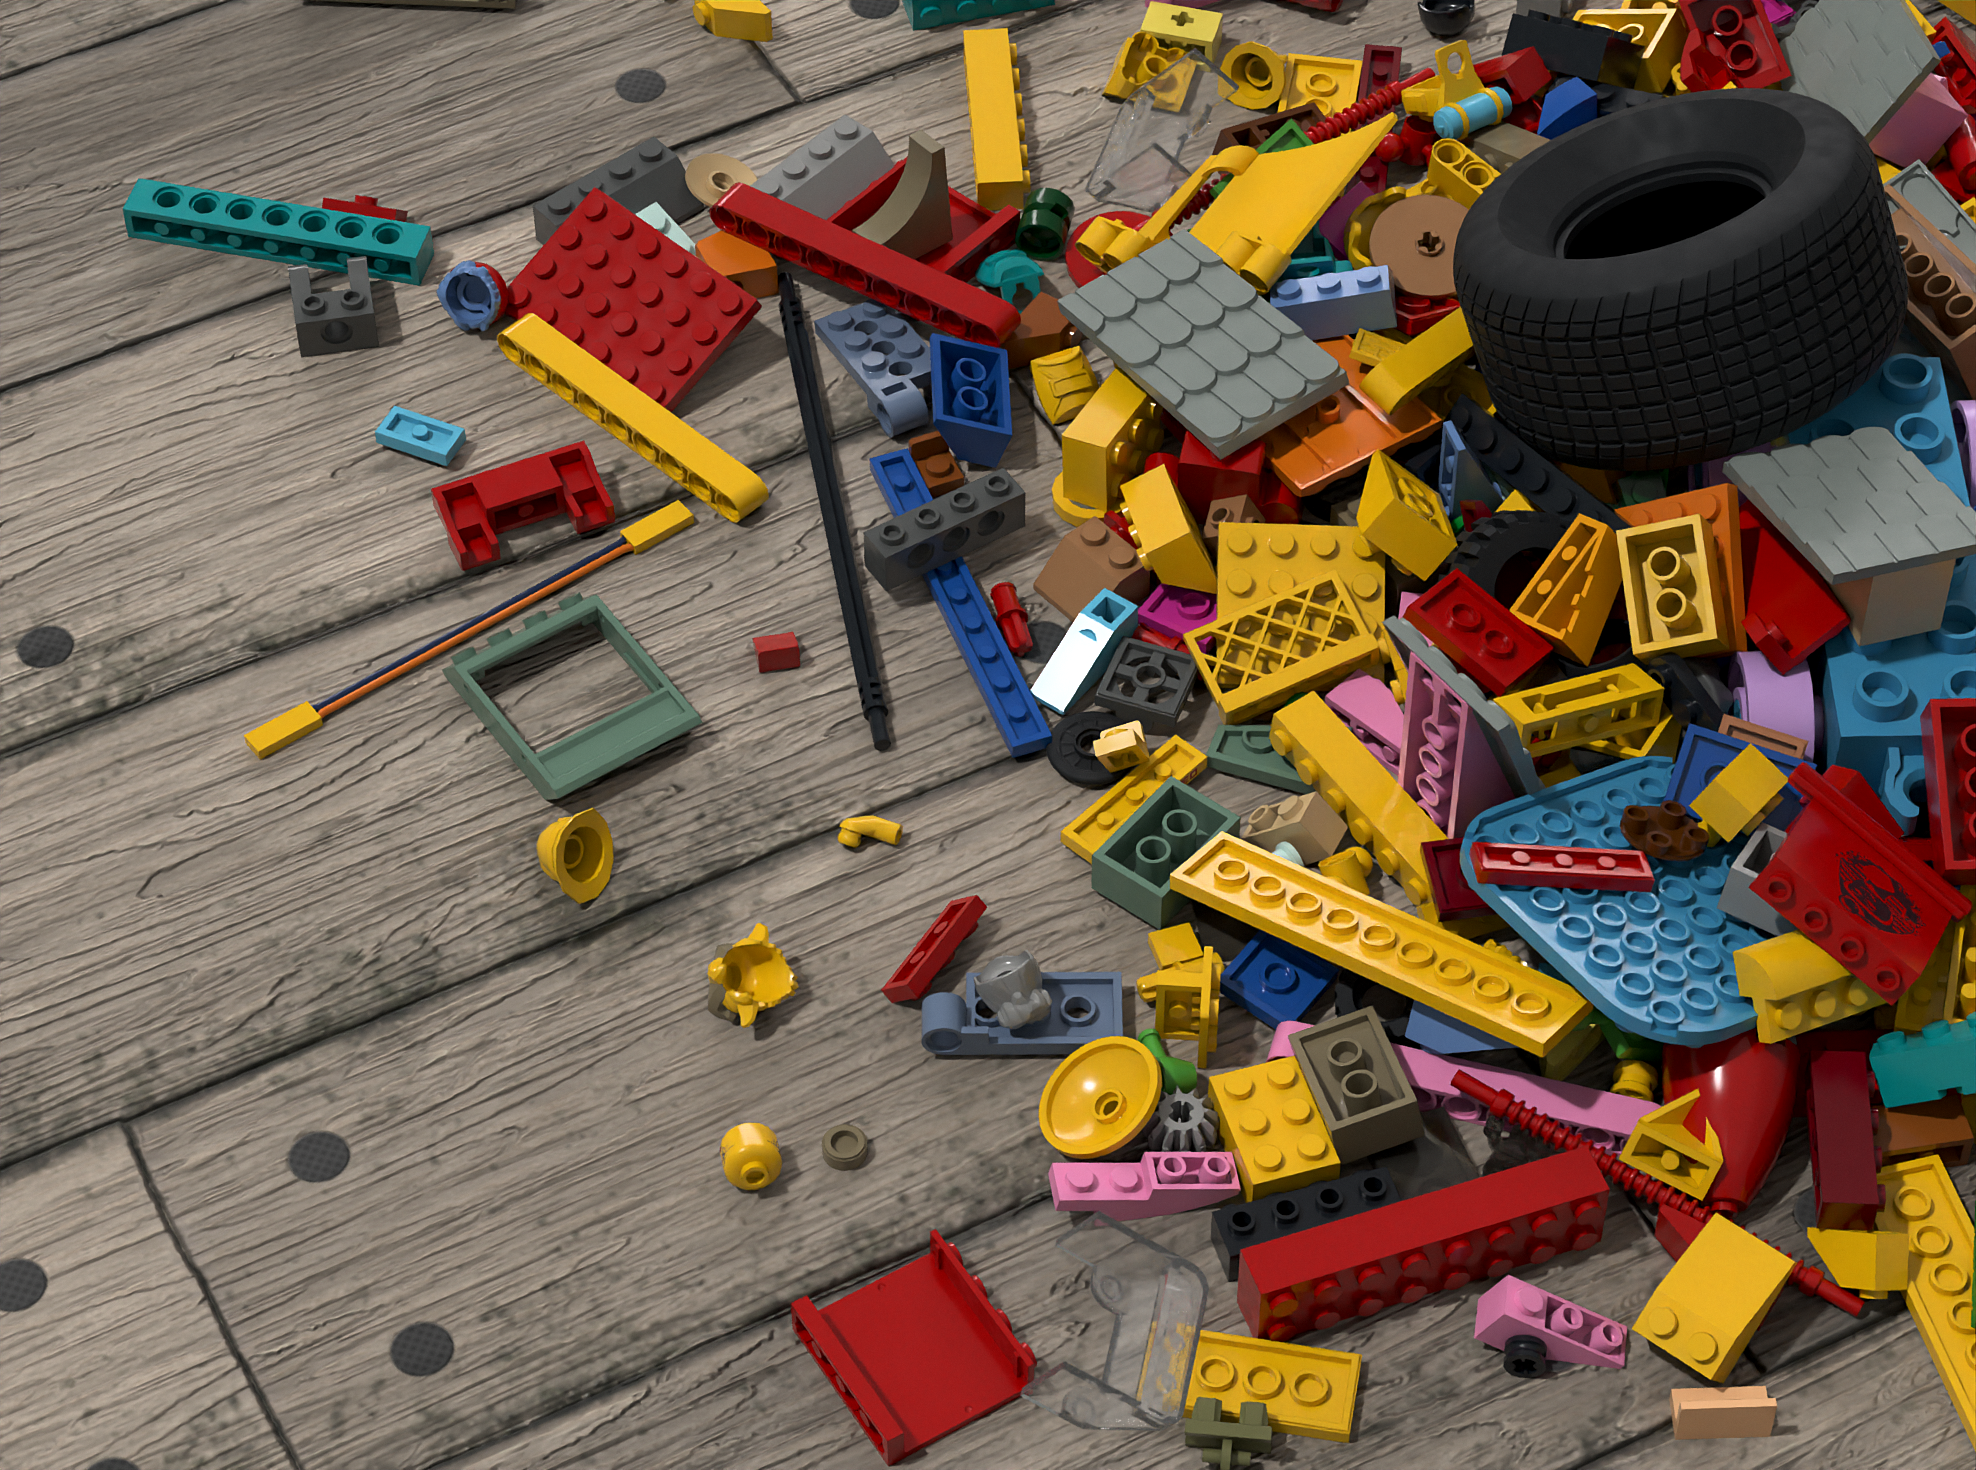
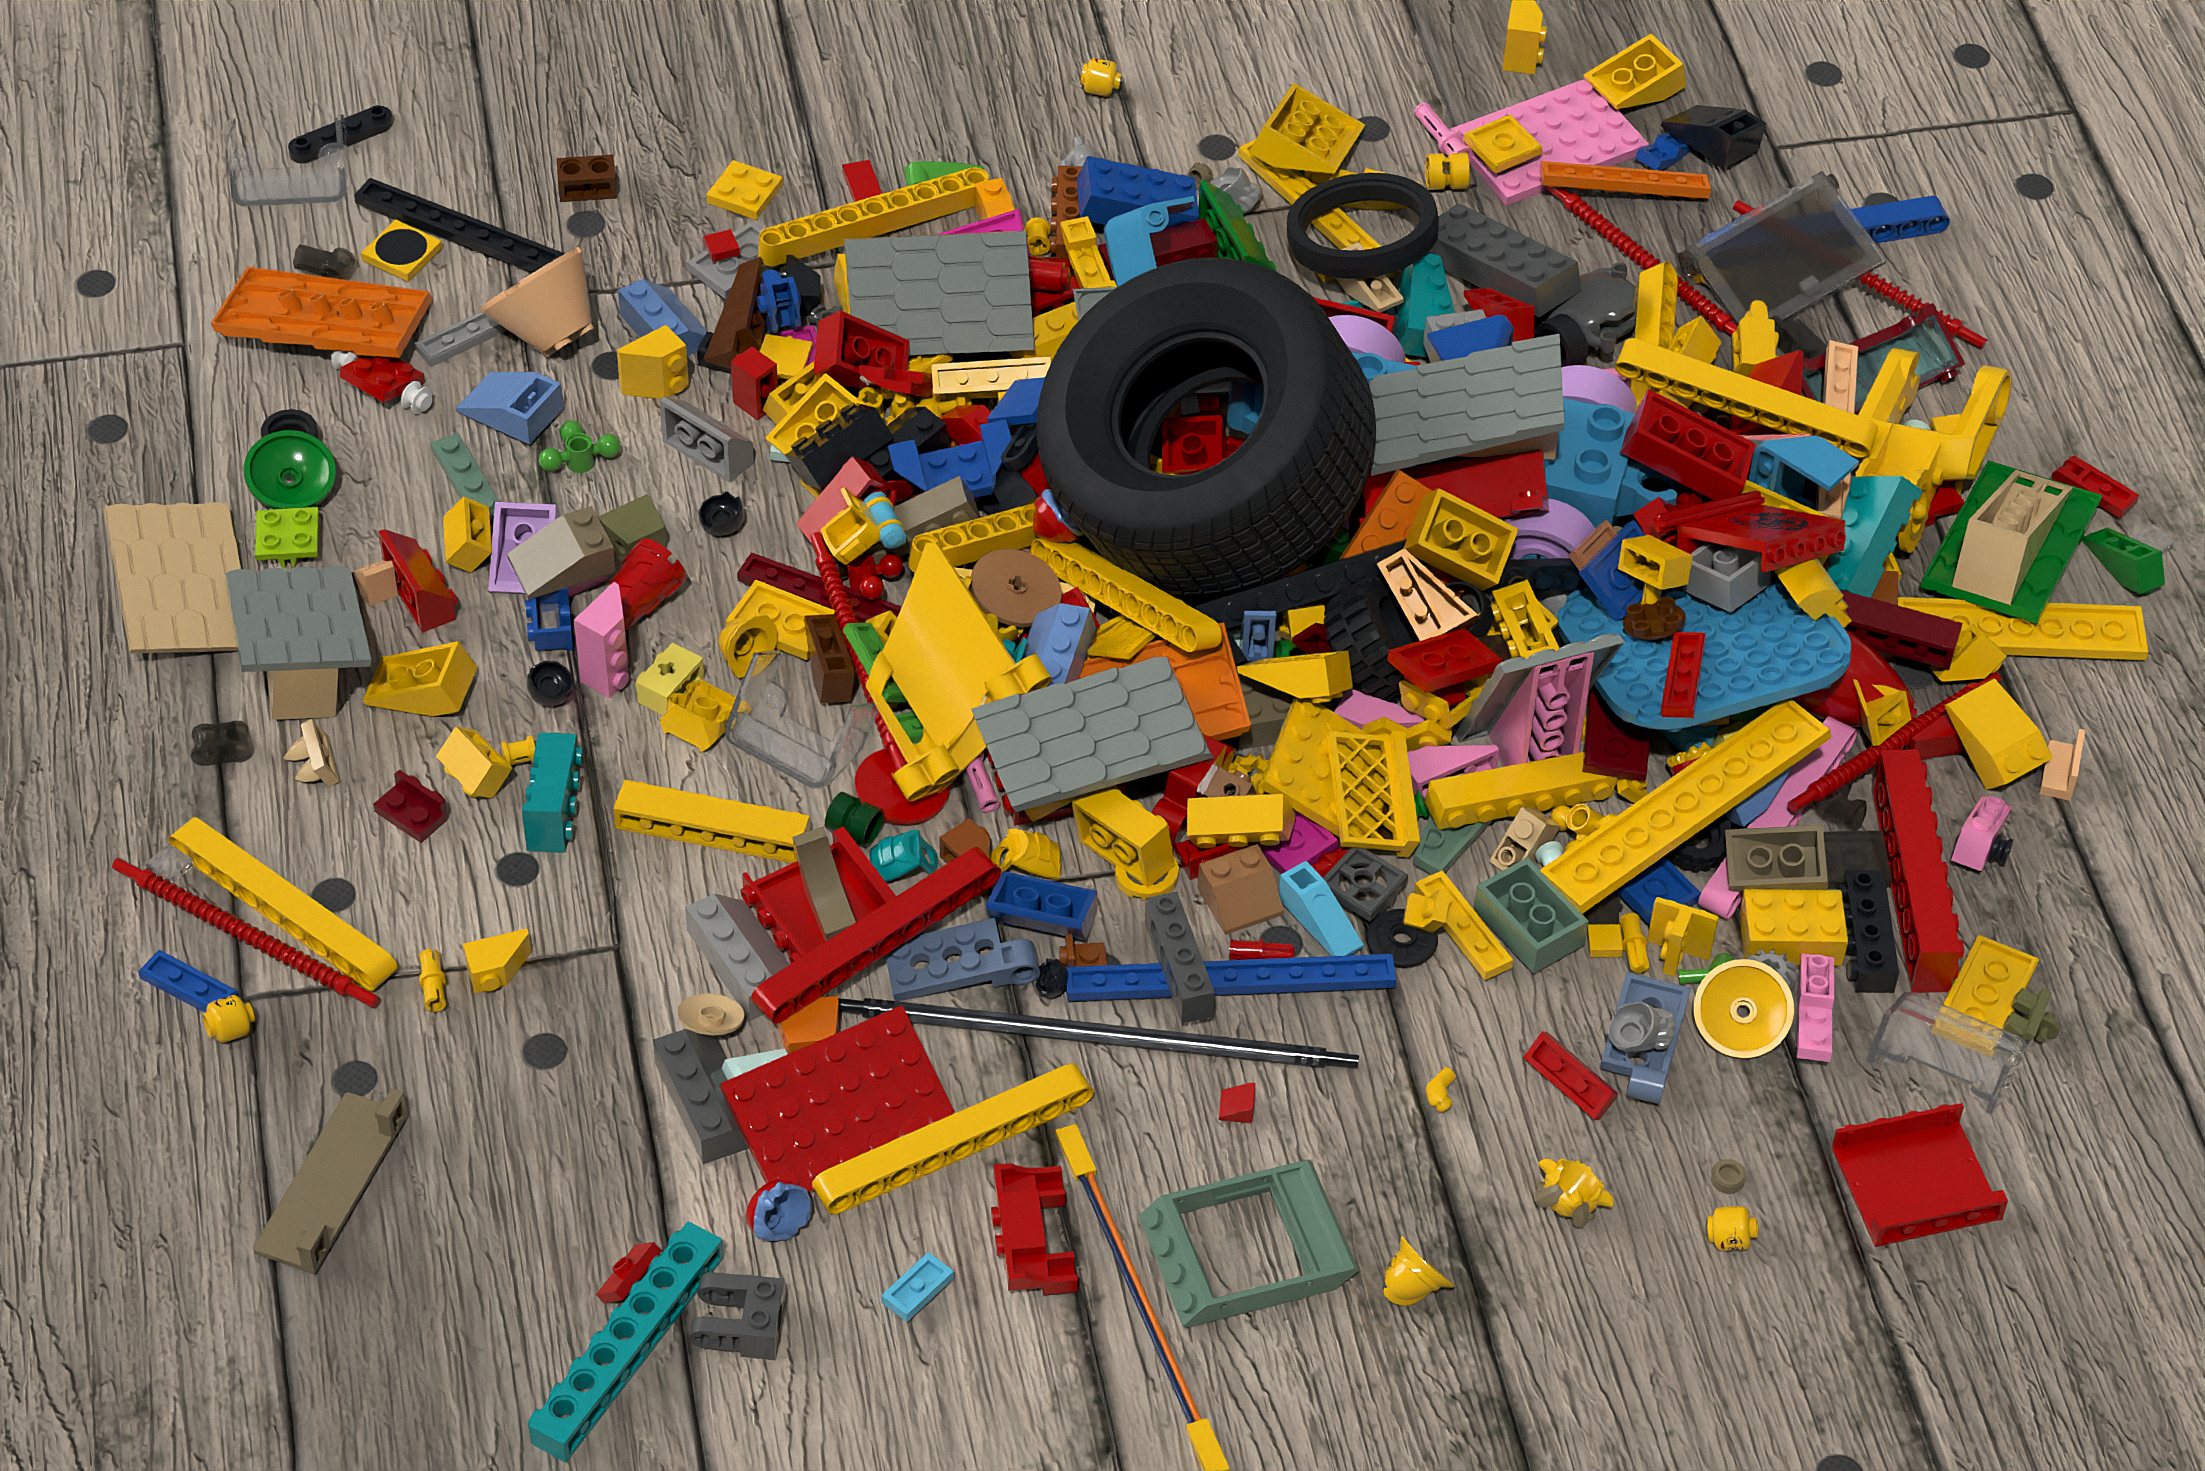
camera: 75 degrees left, 0 degrees up
(887, 440) = (1052, 978): none -> black plate

